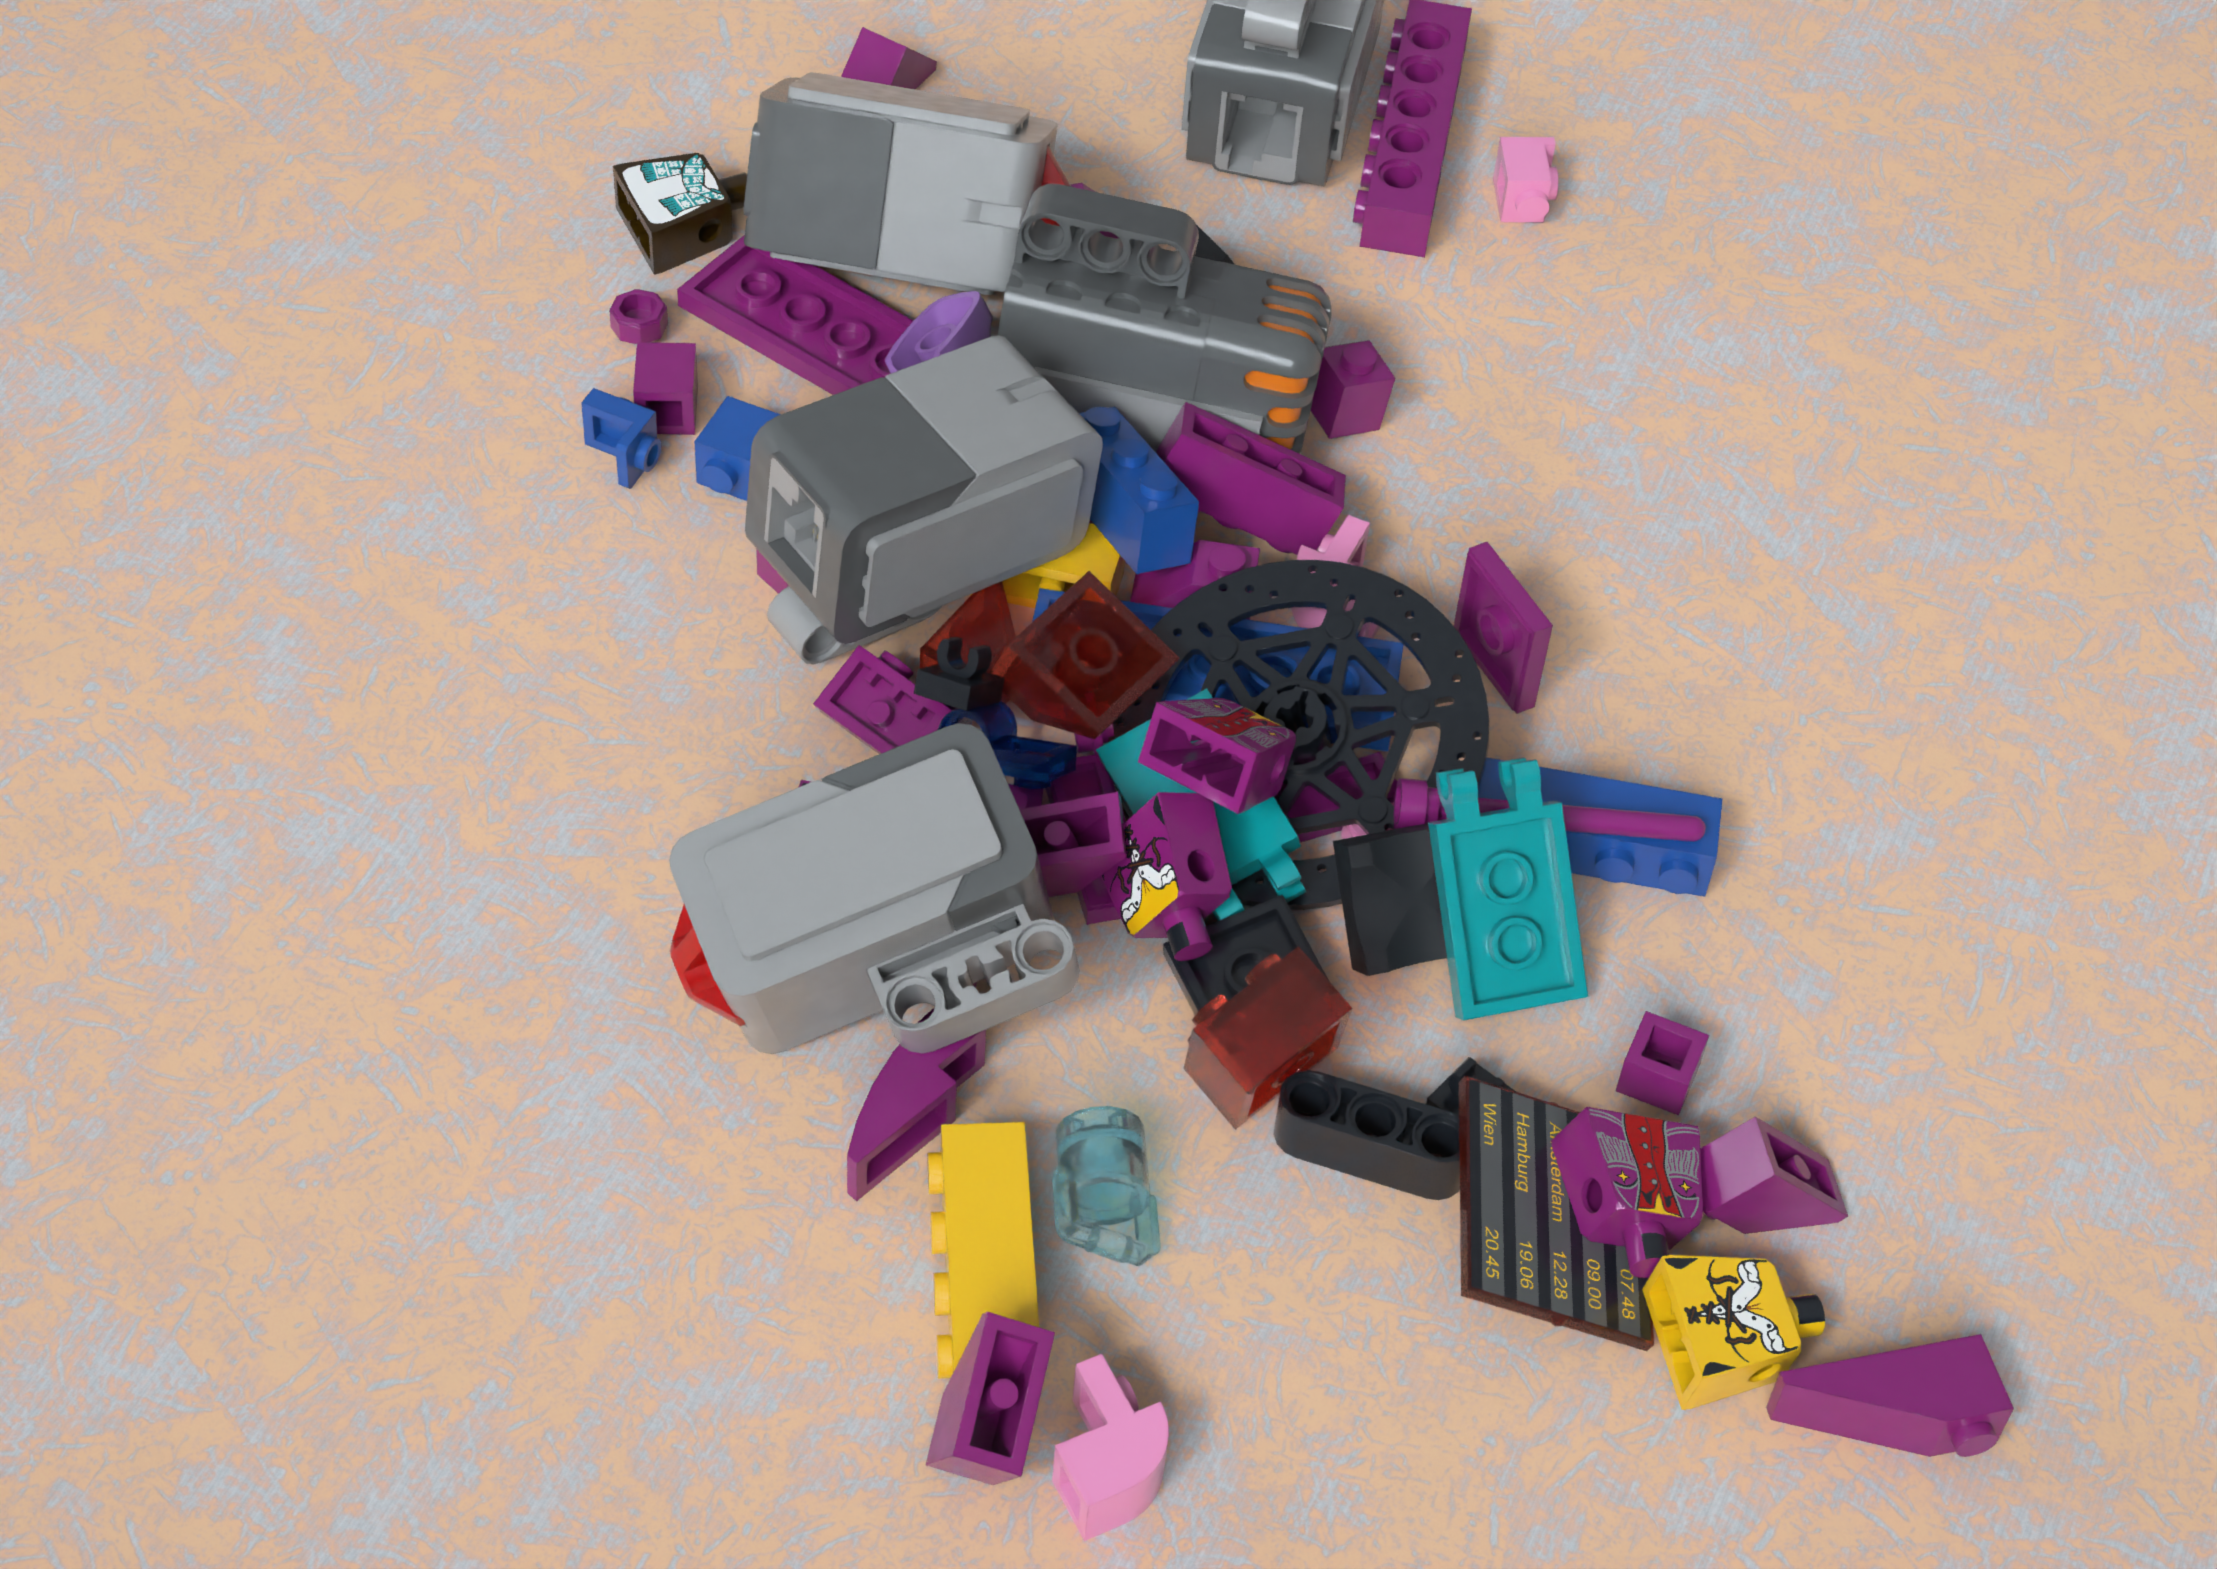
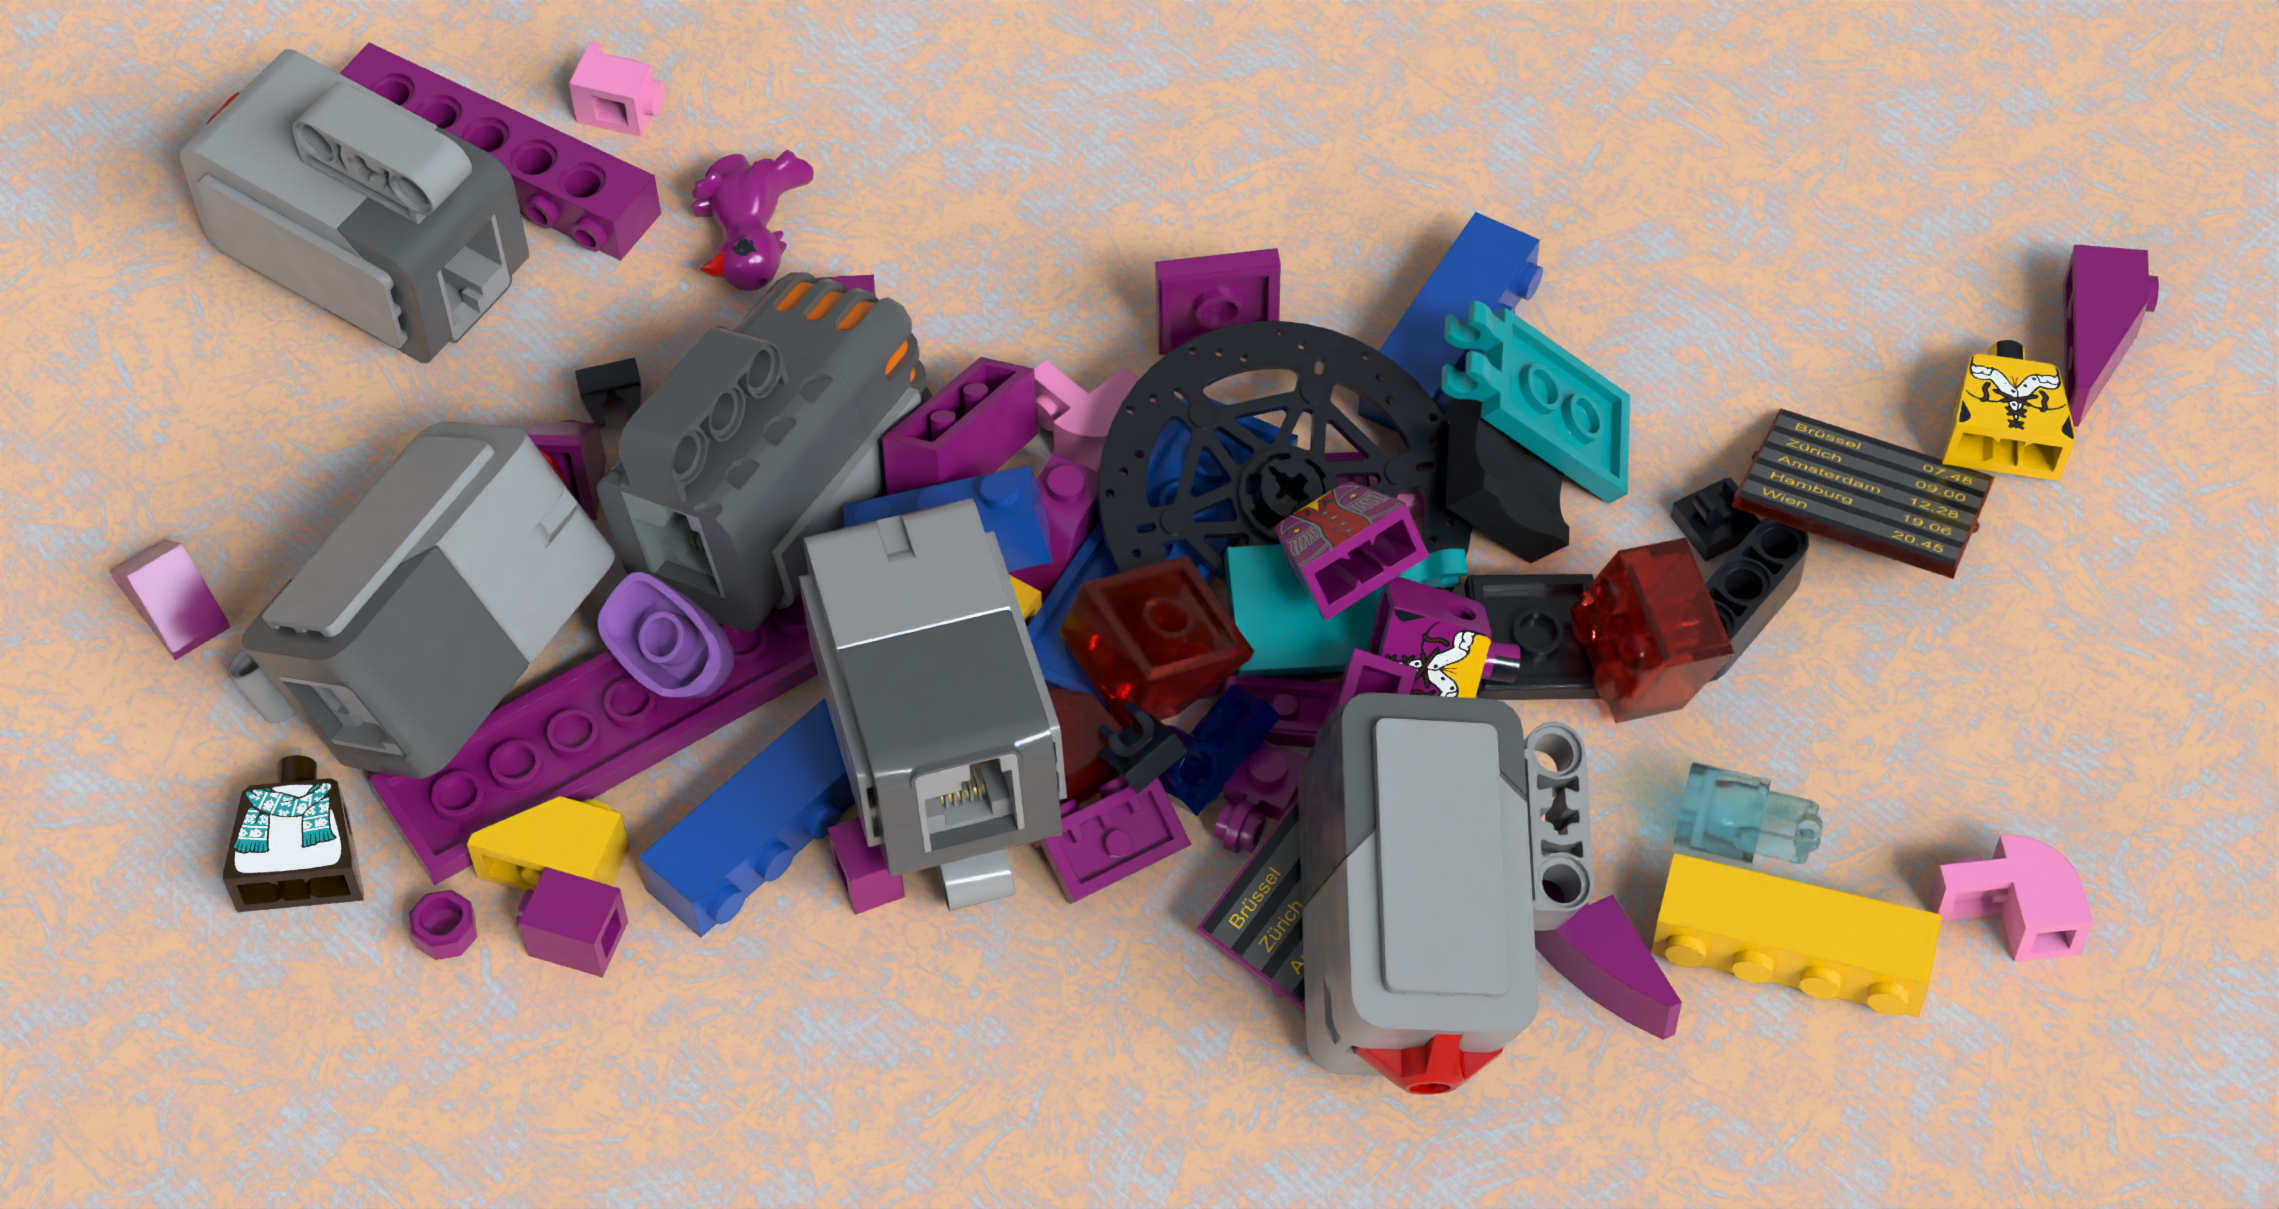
camera: 65 degrees left, 5 degrees up
(623, 431) = (621, 975): blue bracket -> none
(730, 358) = (558, 834): none -> yellow slope
(992, 1401) = (1978, 967): magenta slope -> none
(1421, 804) = (1427, 427): magenta piece -> none
(1445, 291) = (742, 204): none -> magenta animal
(1632, 1182) = (1865, 423): magenta torso -> none
(1662, 1063) = (1730, 362): magenta plate -> none
(1767, 1181) = (1870, 341): magenta slope -> none

